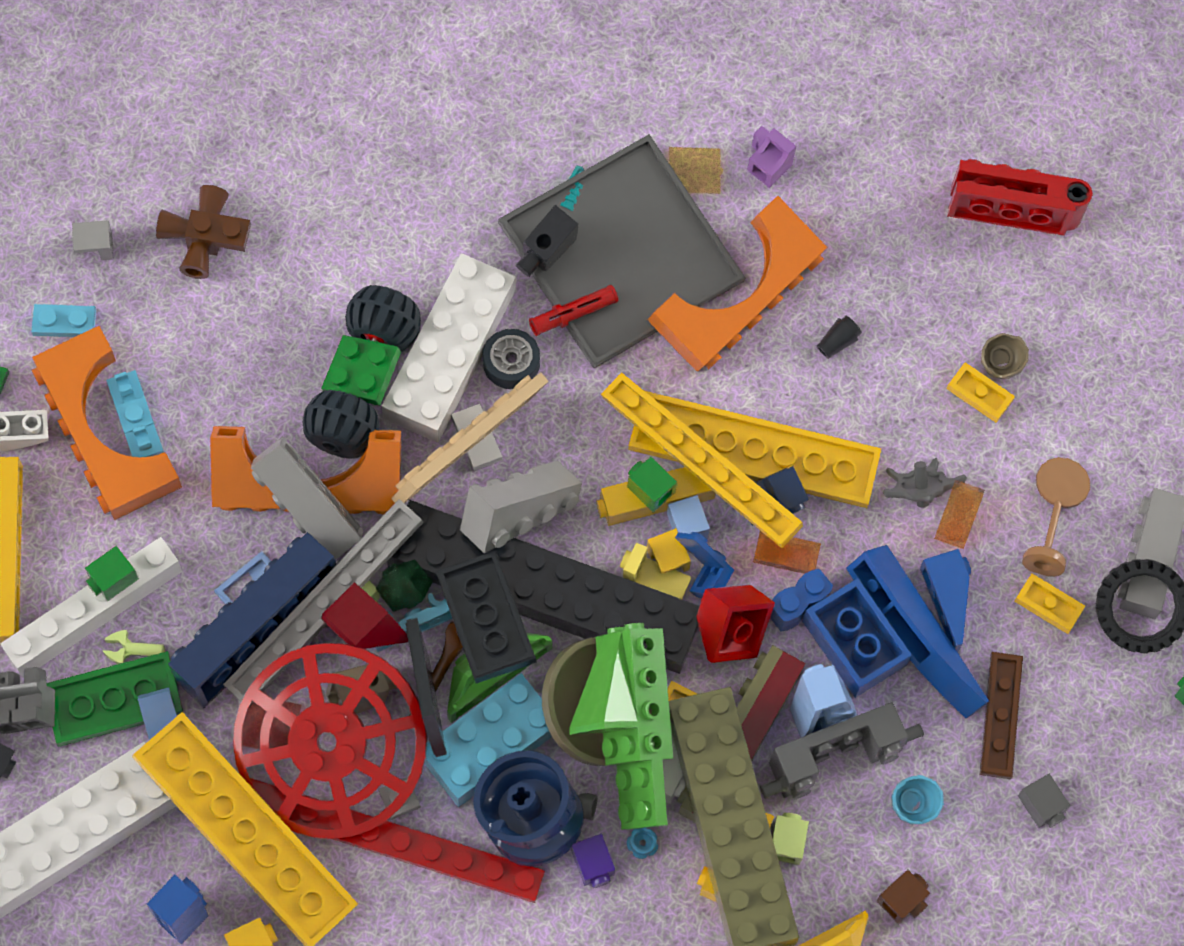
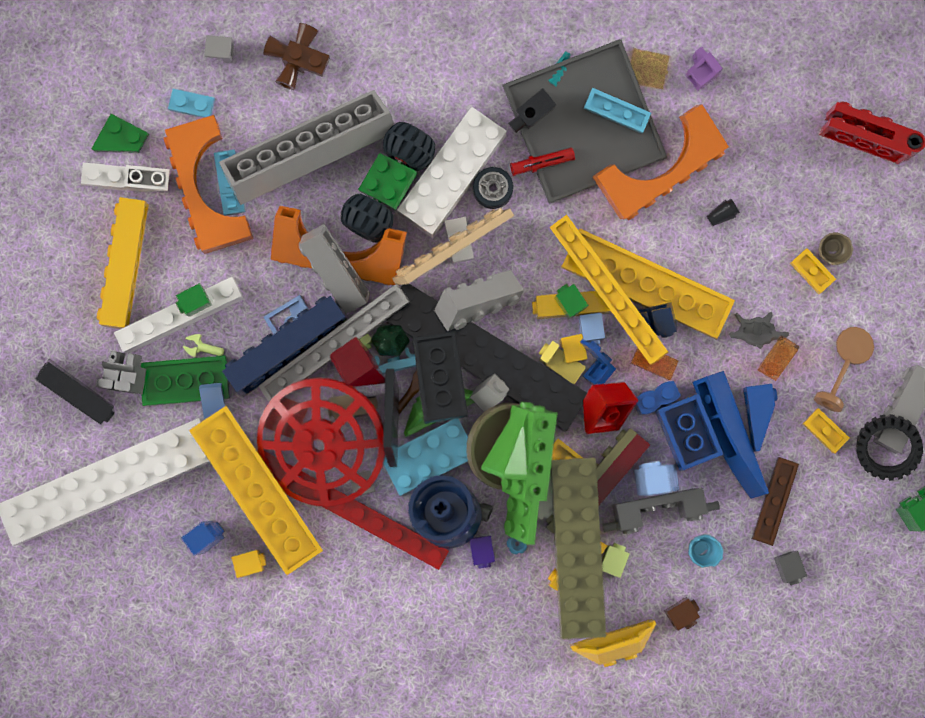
camera: 10 degrees right, 15 degrees up
(238, 344) = (307, 147): none -> light grey brick
(561, 628) = (489, 392): none -> light grey brick
(663, 226) = (617, 110): none -> medium azure plate

